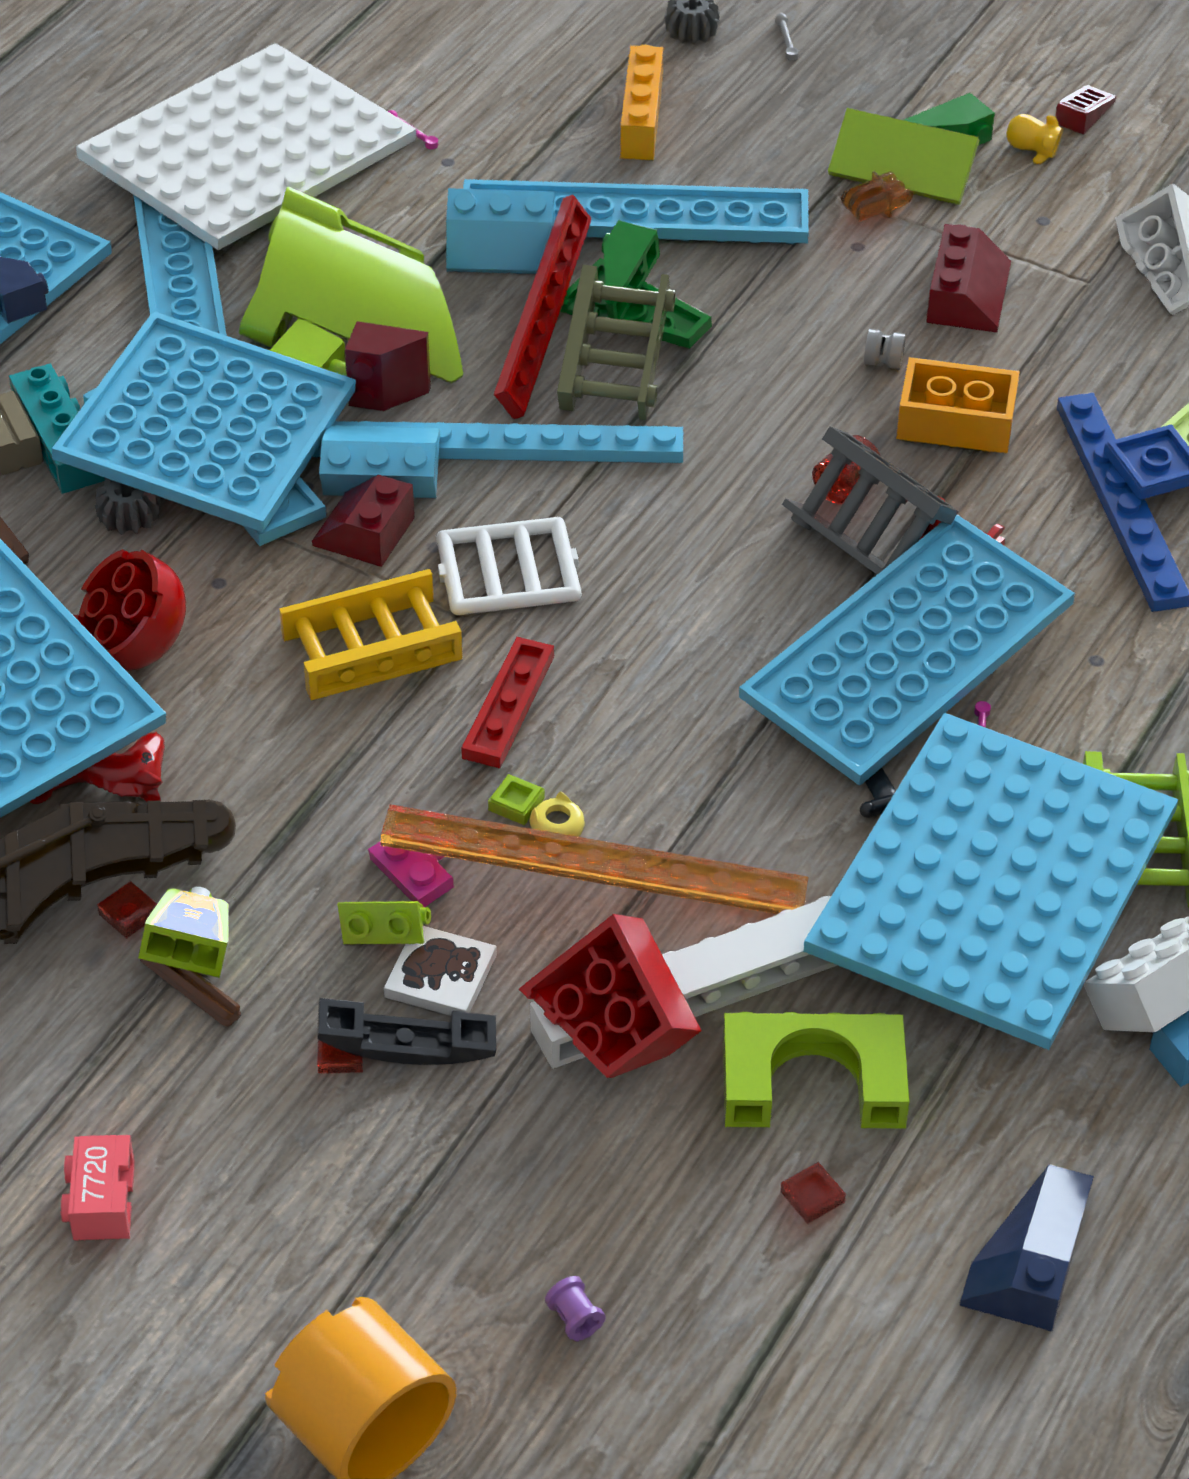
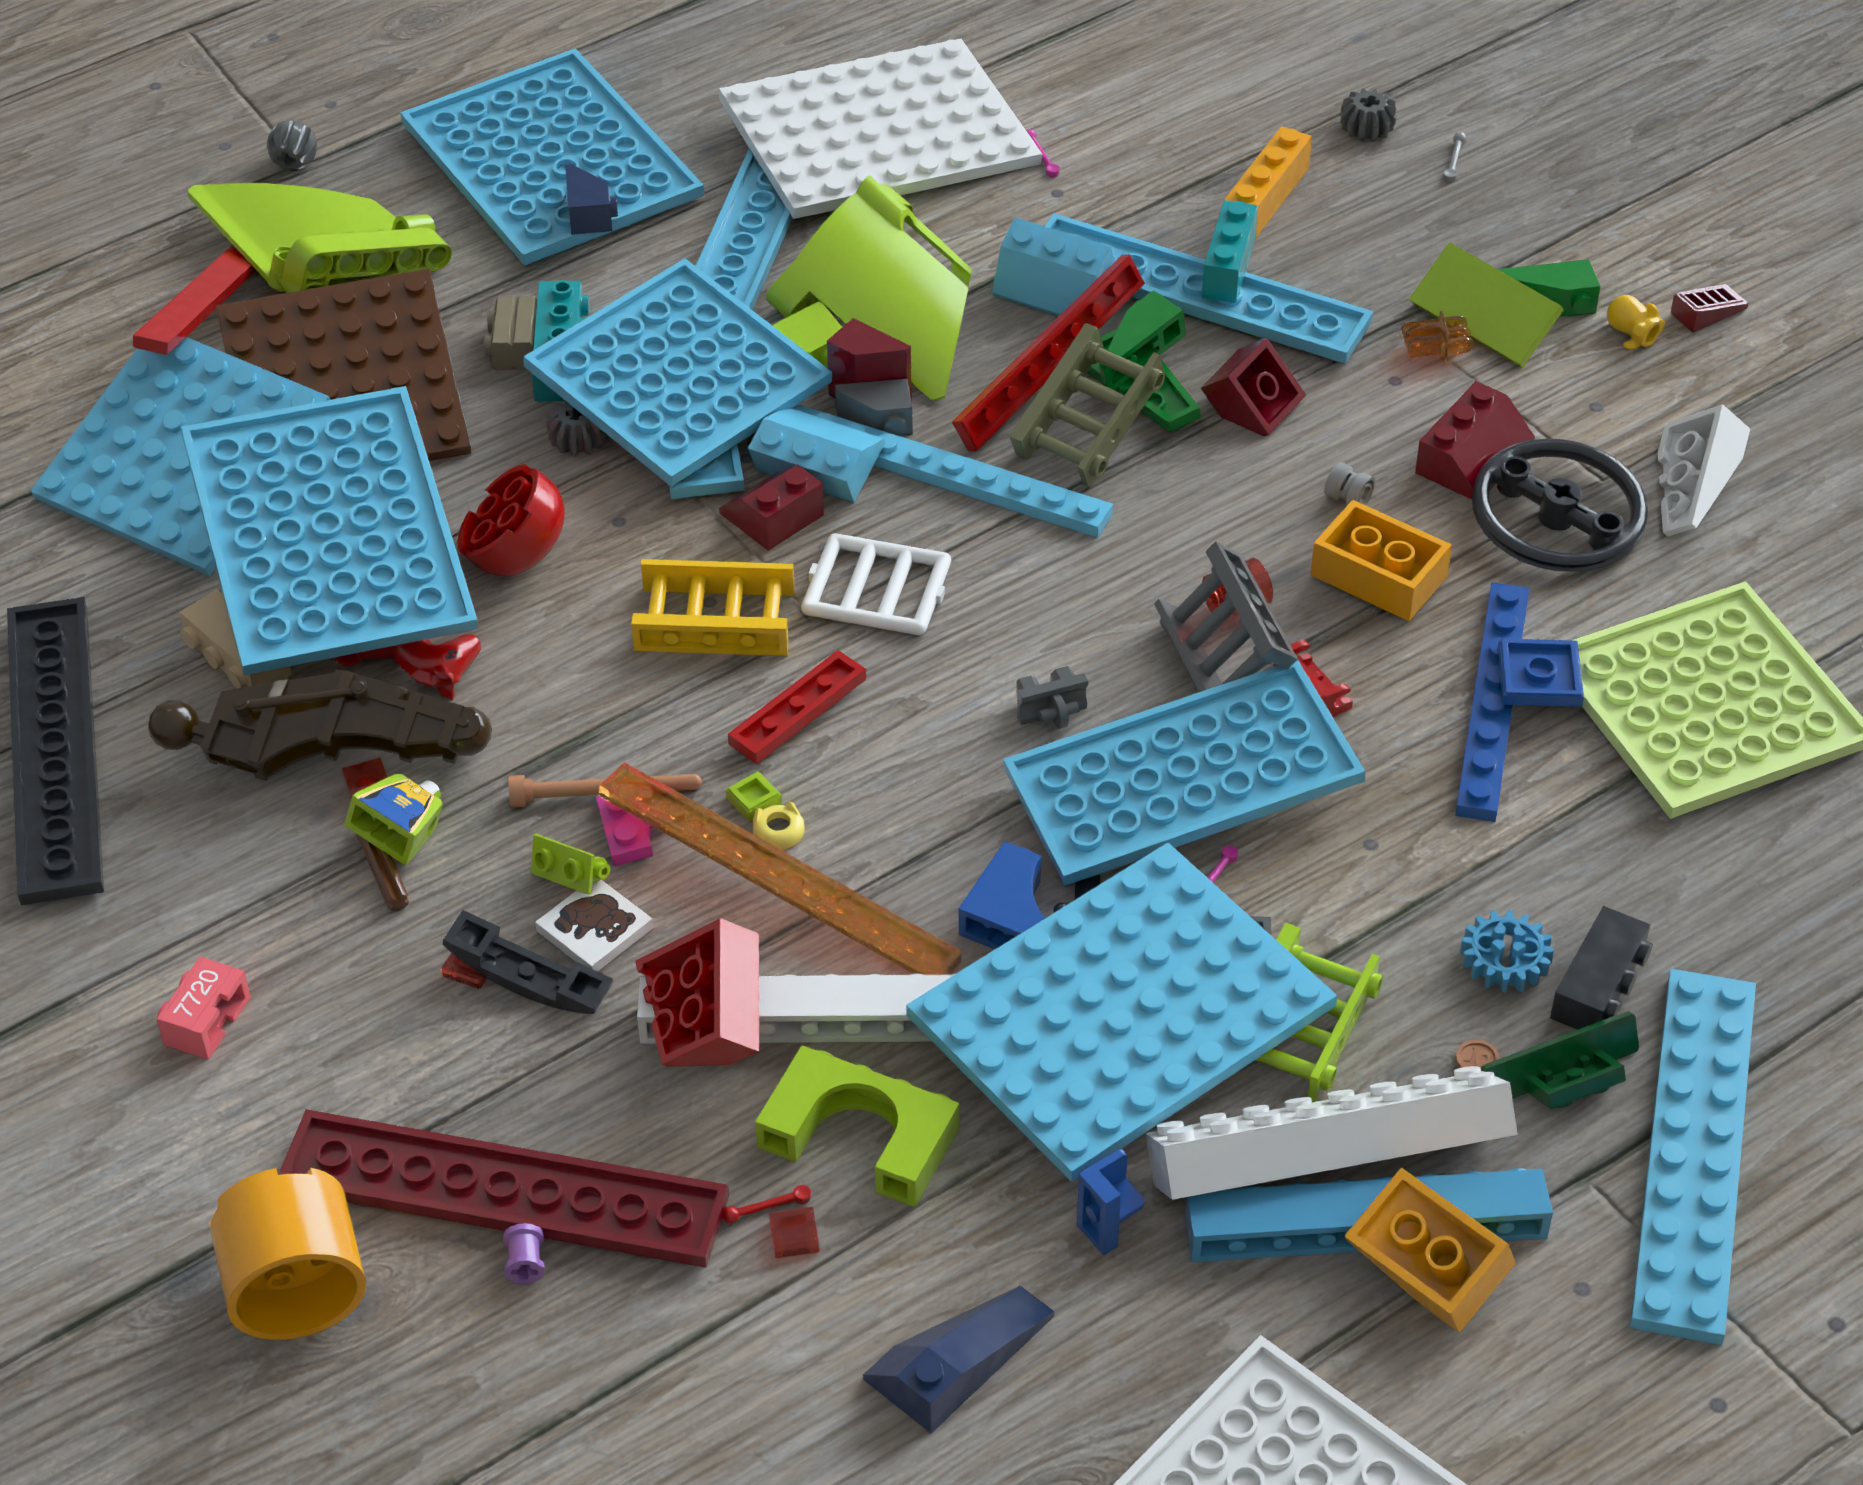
camera: 25 degrees right, 0 degrees up
(291, 867) = (525, 790): none -> nougat piece
(409, 398) = (877, 404): none -> dark grey slope
(517, 1250) = (512, 1185): none -> dark red plate
(656, 168) = (1229, 251): none -> teal brick
(744, 622) = (1051, 700): none -> dark grey hips
(745, 286) = (1254, 388): none -> dark red slope
(795, 1156) = (800, 1195): none -> red hinge
(820, 821) = (1002, 898): none -> blue arch
(1074, 312) = (1560, 505): none -> black piece
(1091, 1060) = (1106, 1200): none -> blue panel

